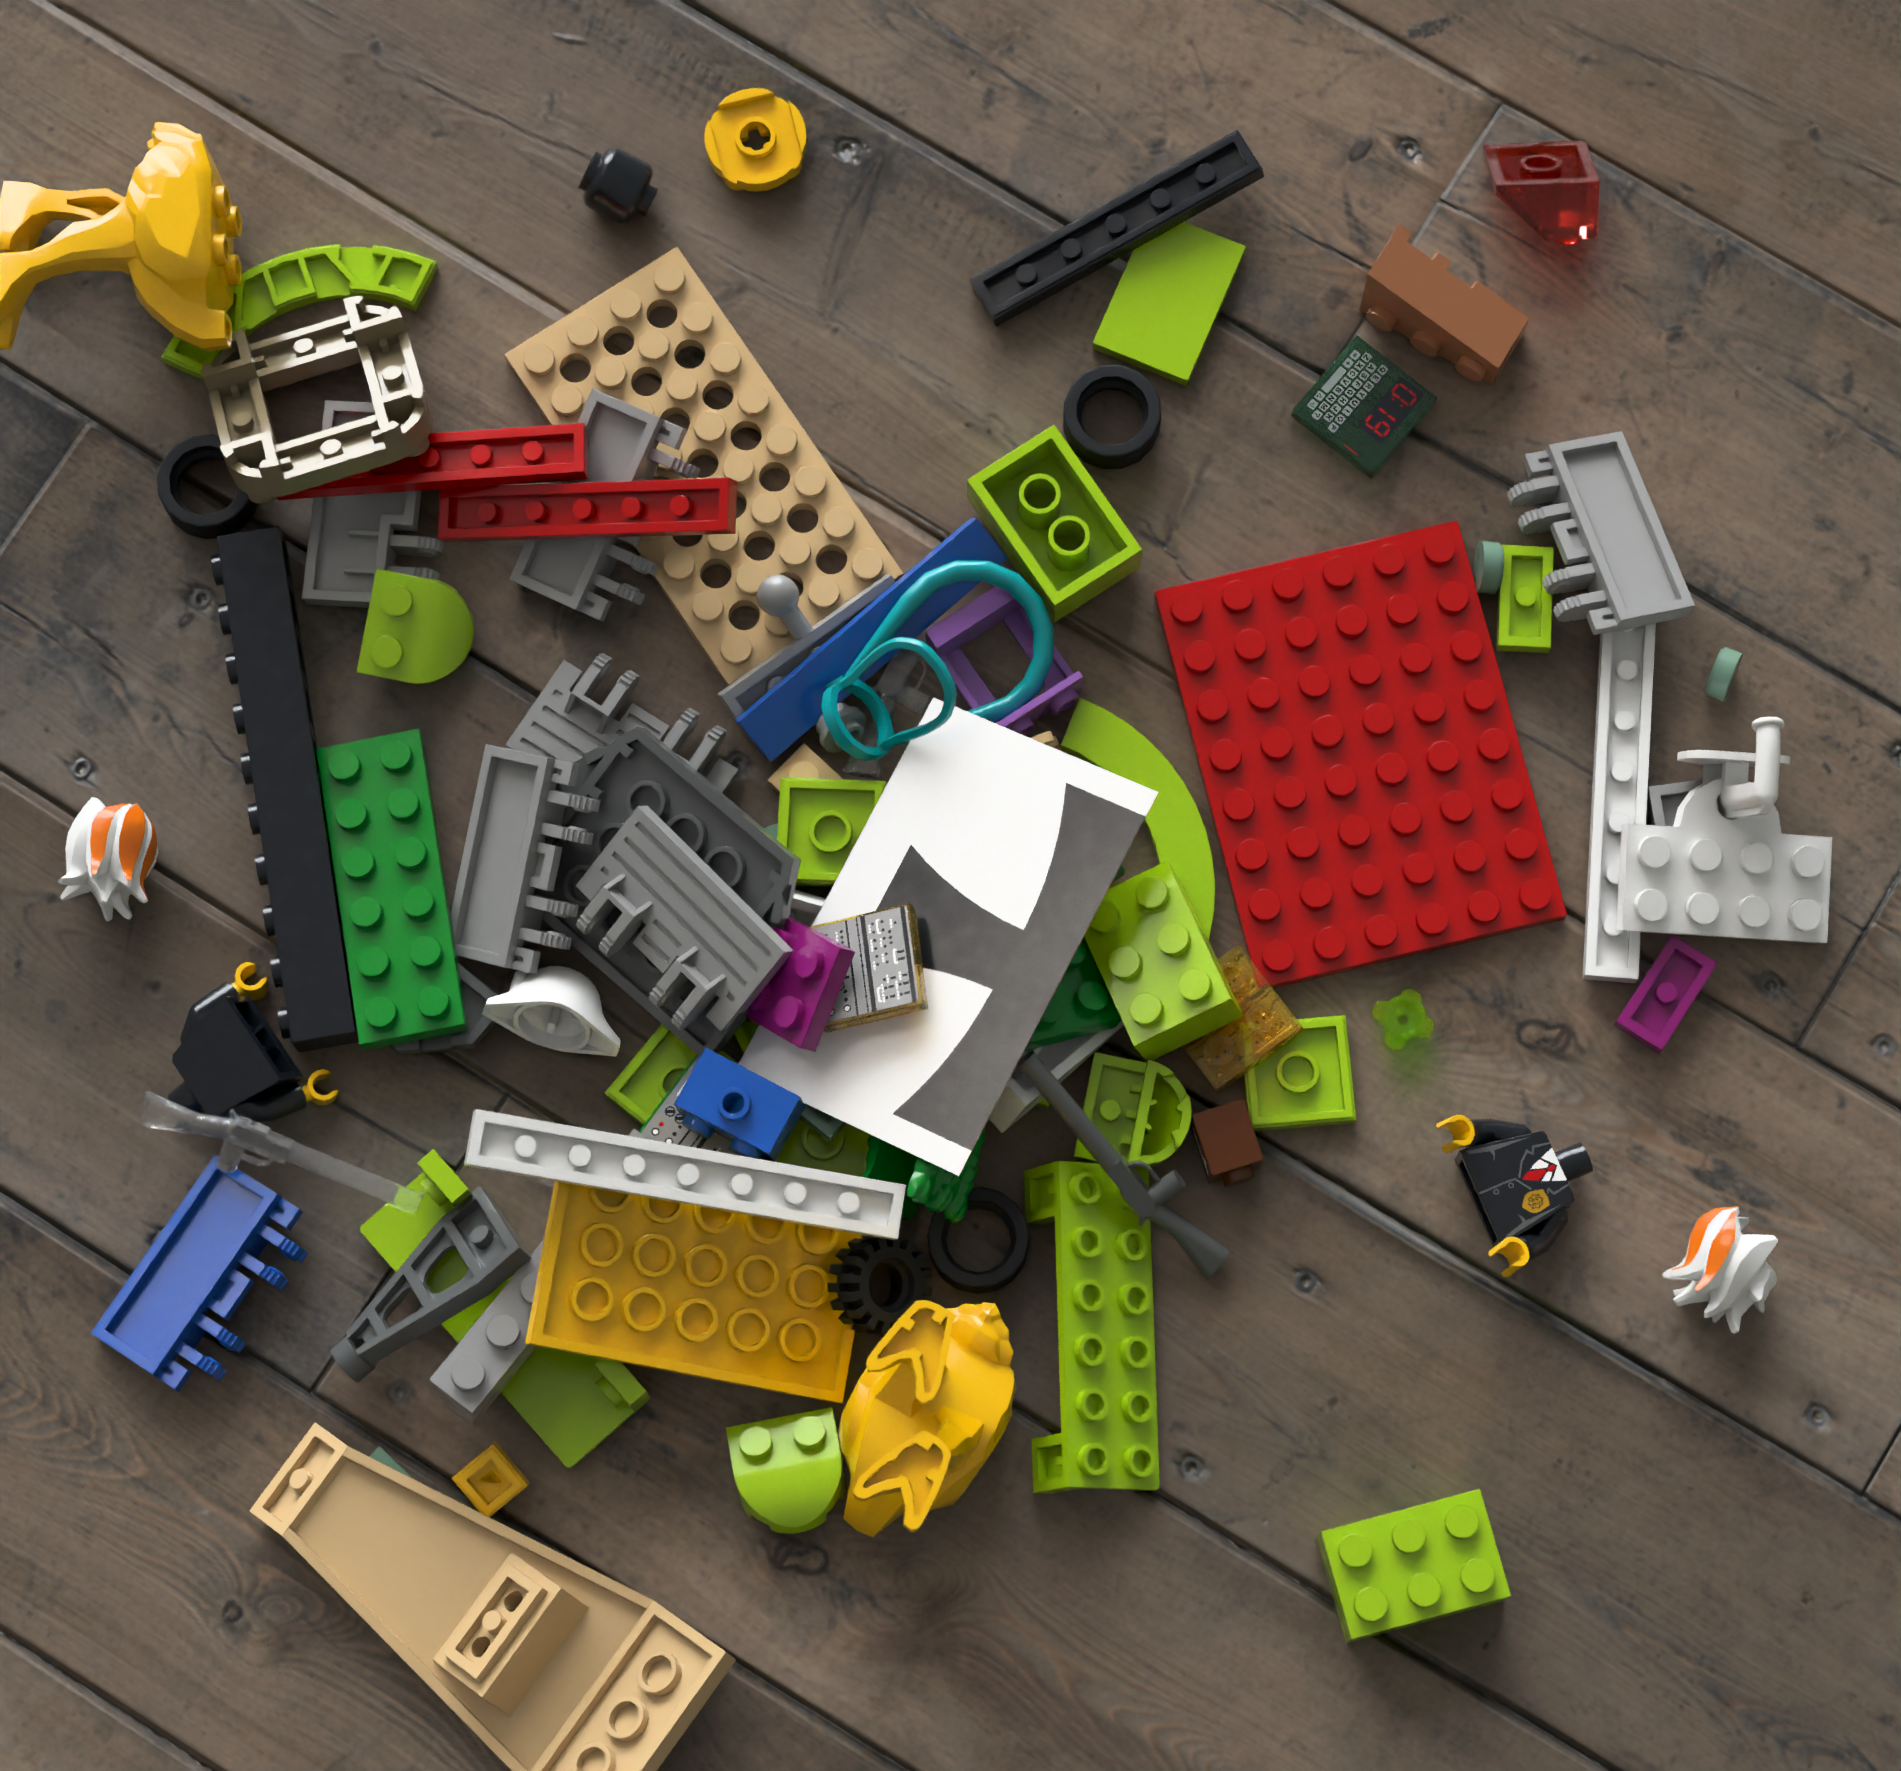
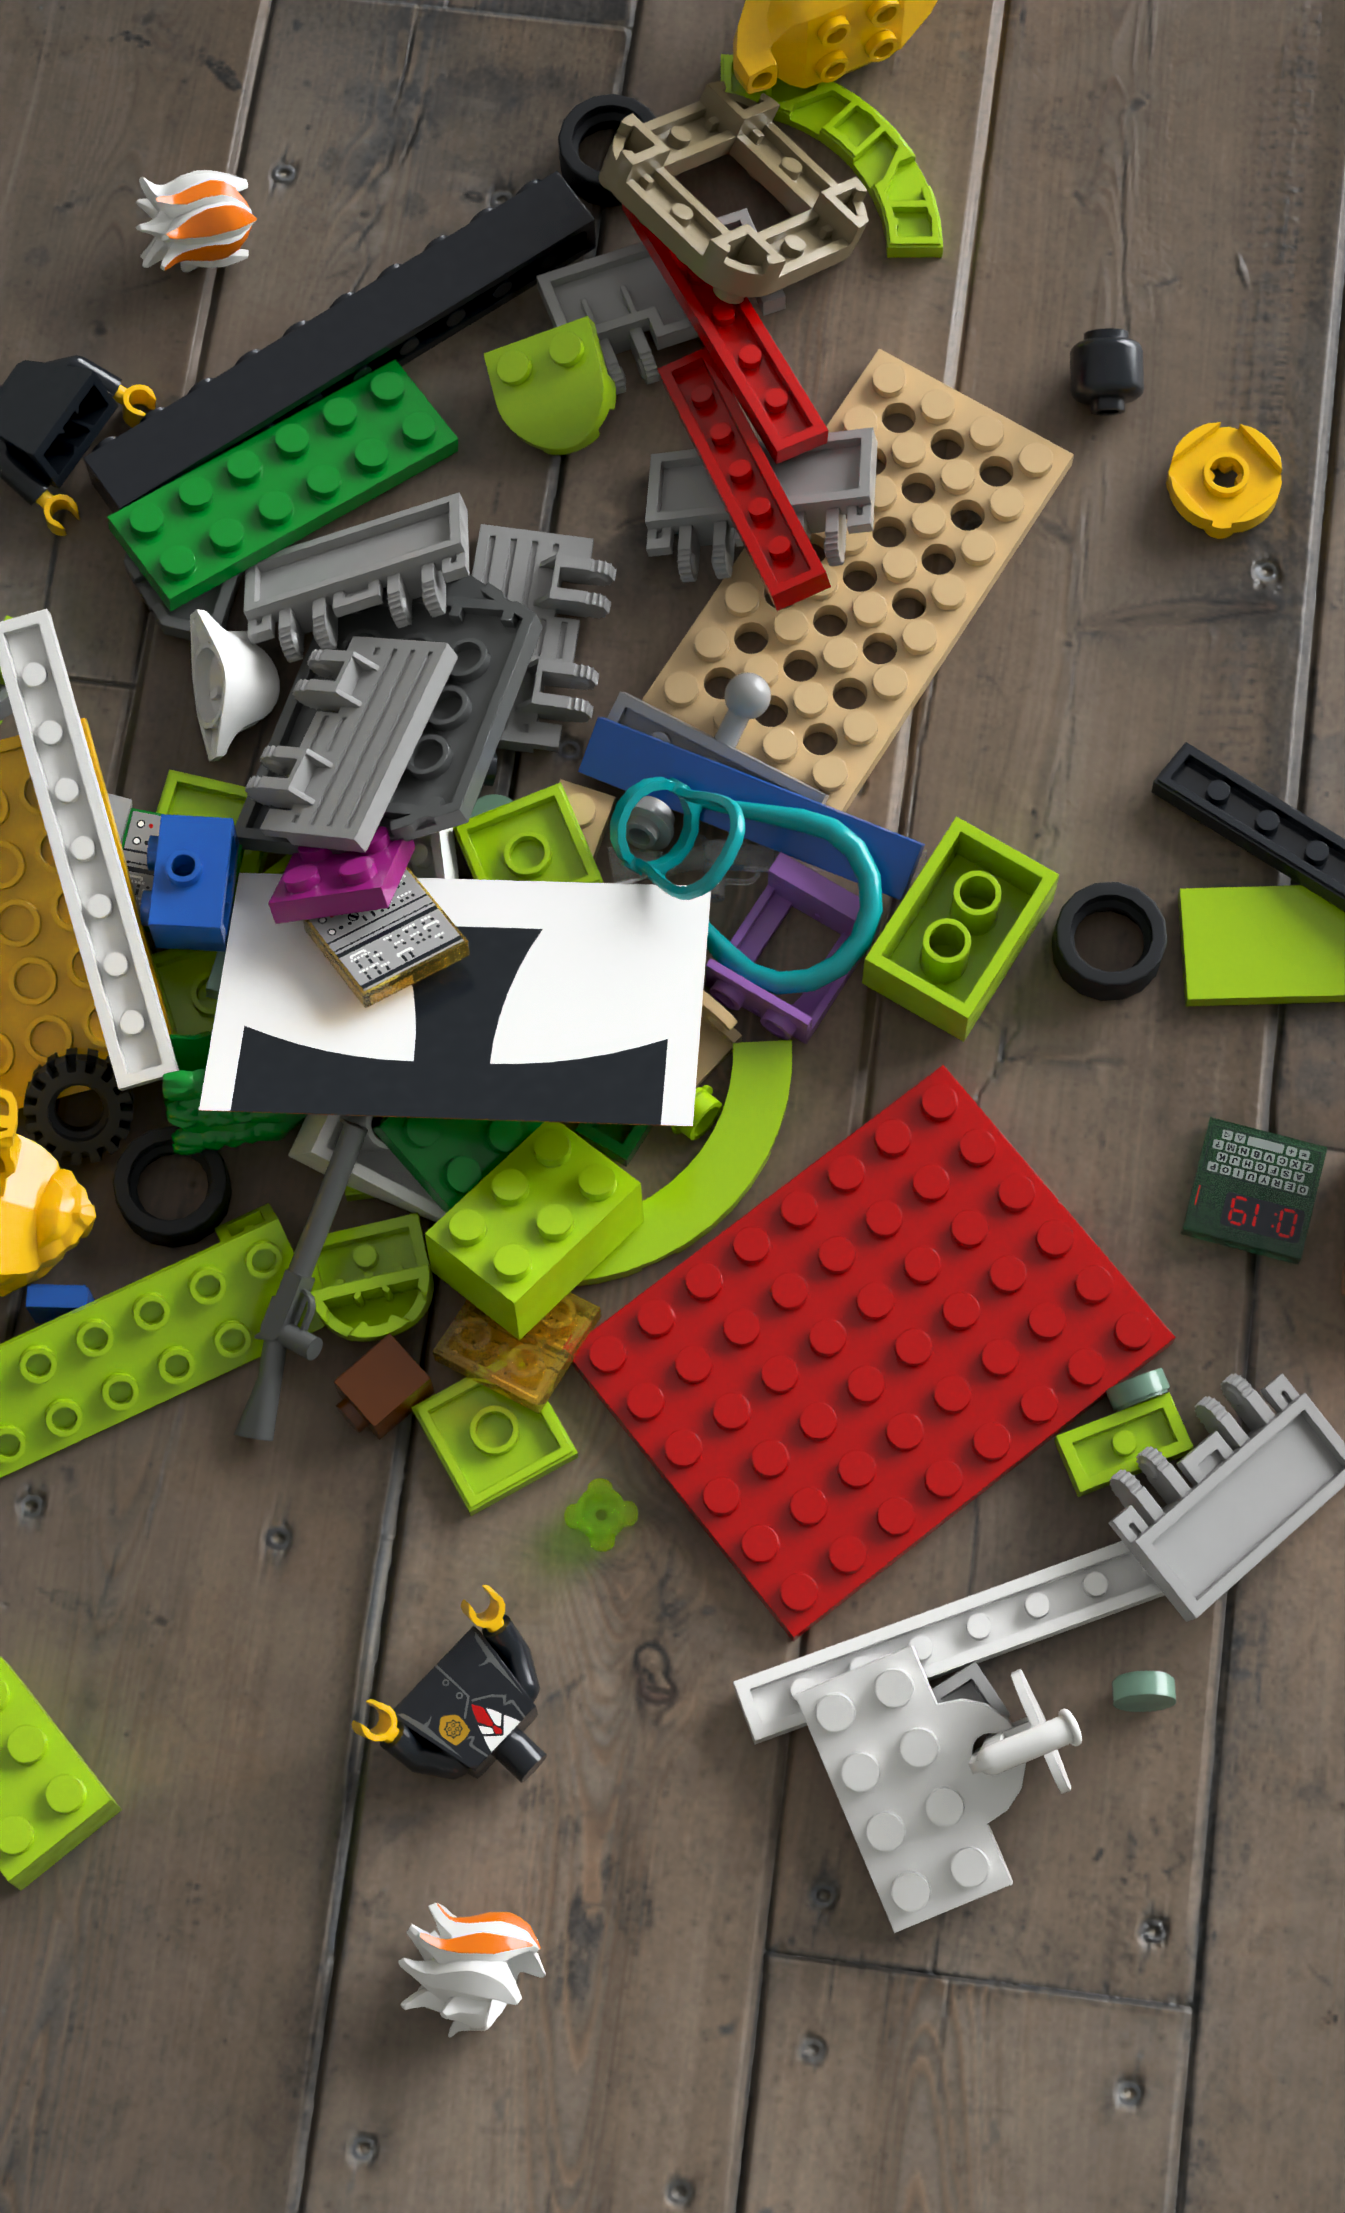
camera: 65 degrees right, 5 degrees down
(1039, 1370) = (51, 1301): none -> blue tile
(1665, 994) = (754, 1779): magenta plate -> none

